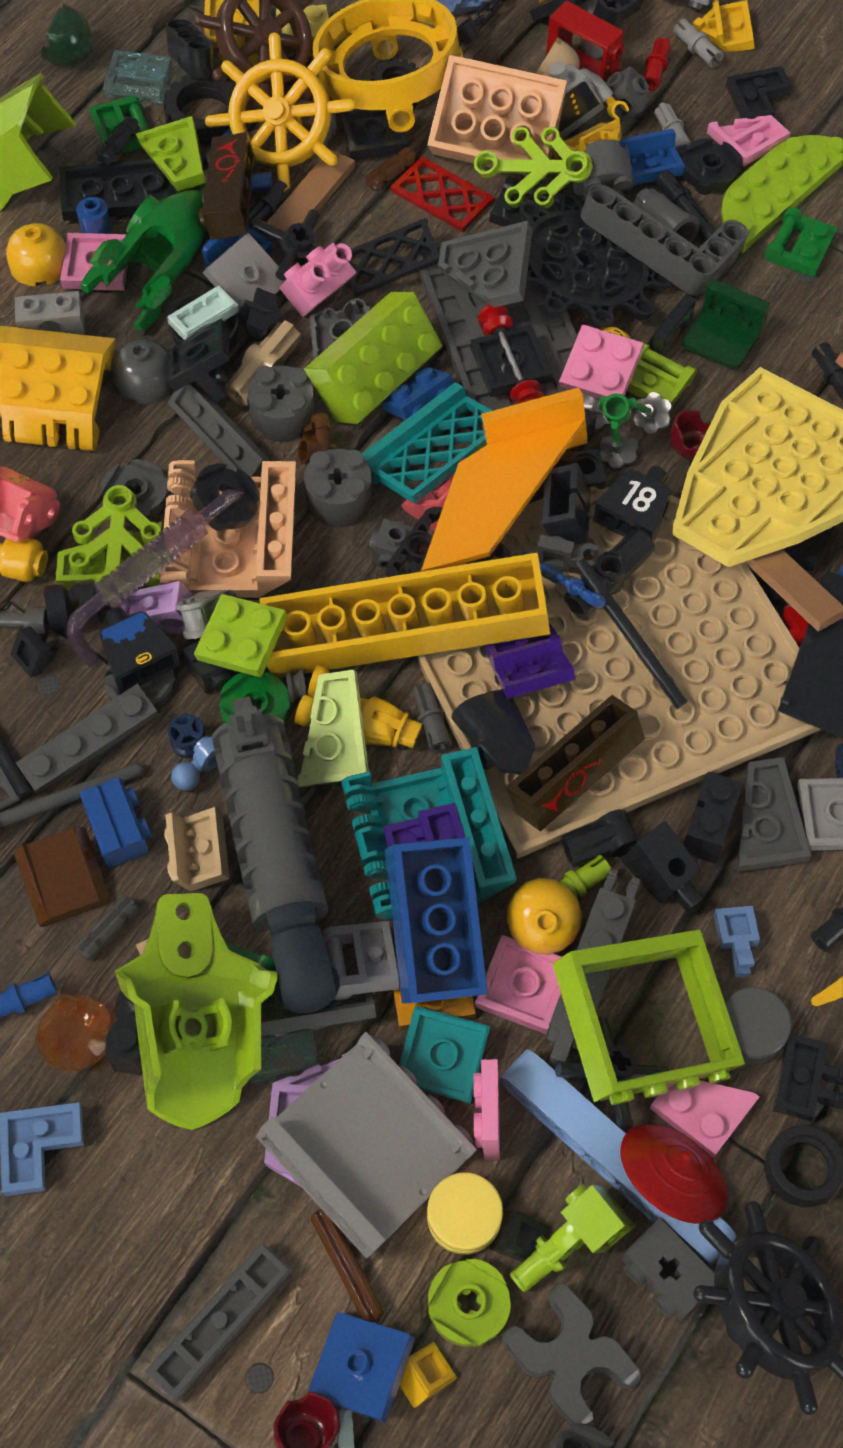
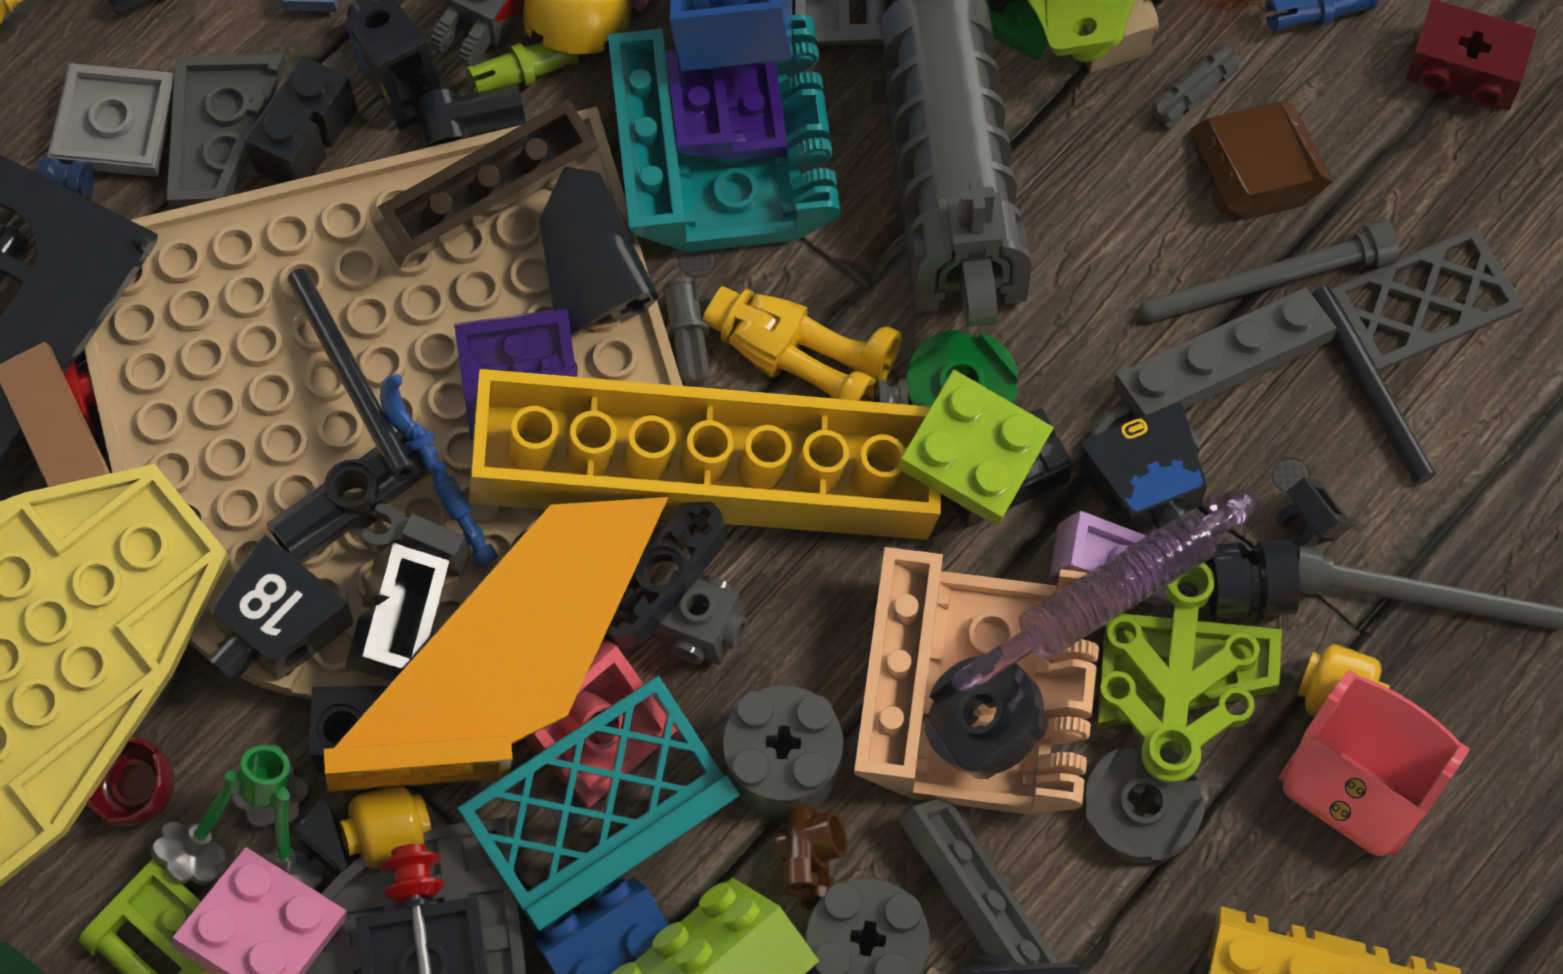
camera: 170 degrees left, 5 degrees up
(115, 823) = (1183, 221): blue brick -> none
(184, 727) = (1067, 332): dark blue wheel -> none
(187, 774) = (1039, 307): medium blue plate -> none
(197, 849) = (1063, 169): tan bracket -> none
(198, 610) = (1030, 527): light grey piece -> none
(336, 732) = (840, 297): yellowish green wing -> none

